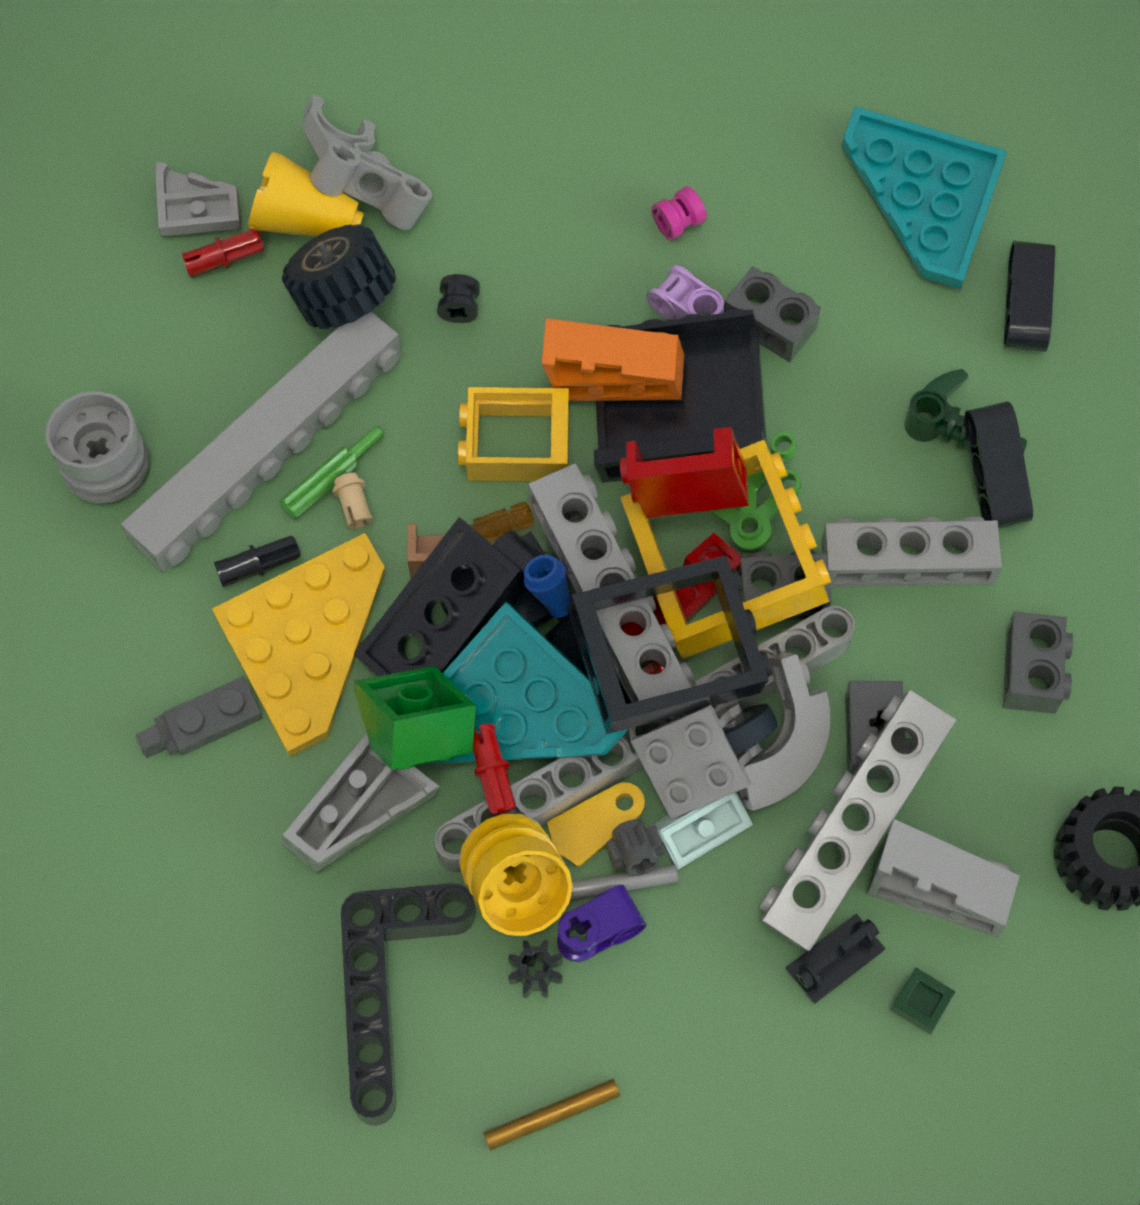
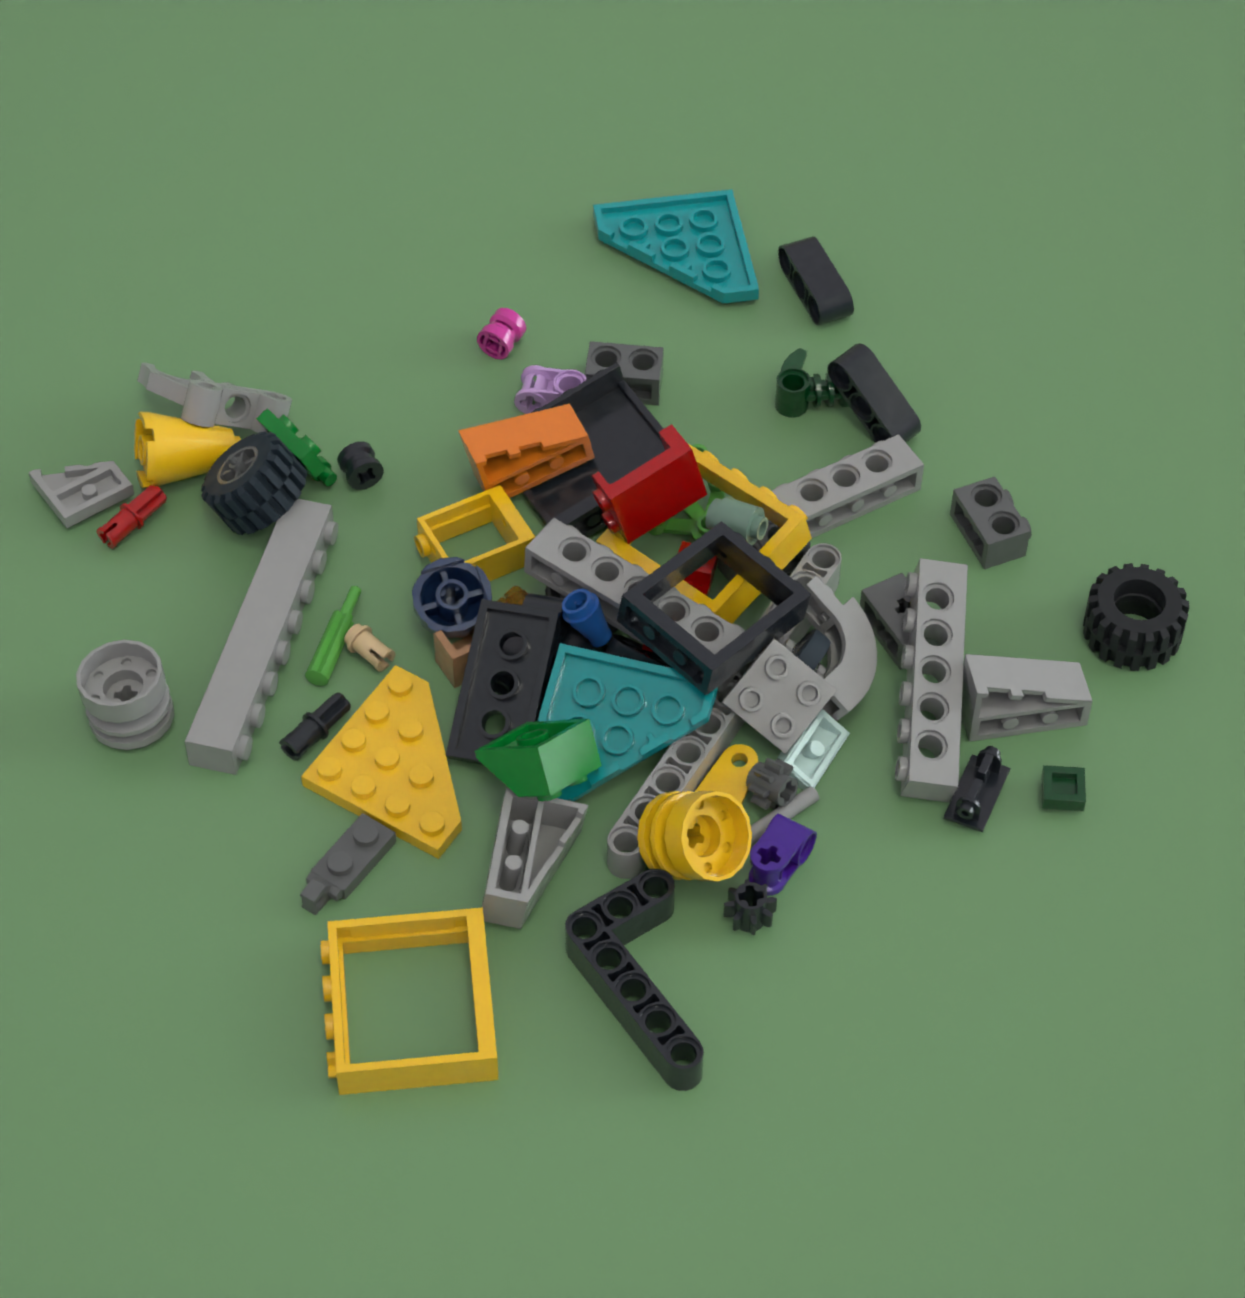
camera: 30 degrees left, 15 degrees down
(109, 855) = (401, 933): none -> yellow window
(405, 253) = (303, 448): none -> green plate
(443, 489) = (450, 596): none -> dark blue cylinder
(492, 770) = (627, 773): red axle -> none
(551, 1114) = (830, 1007): pearl gold bar -> none
(750, 555) = (739, 516): none -> sand green brick

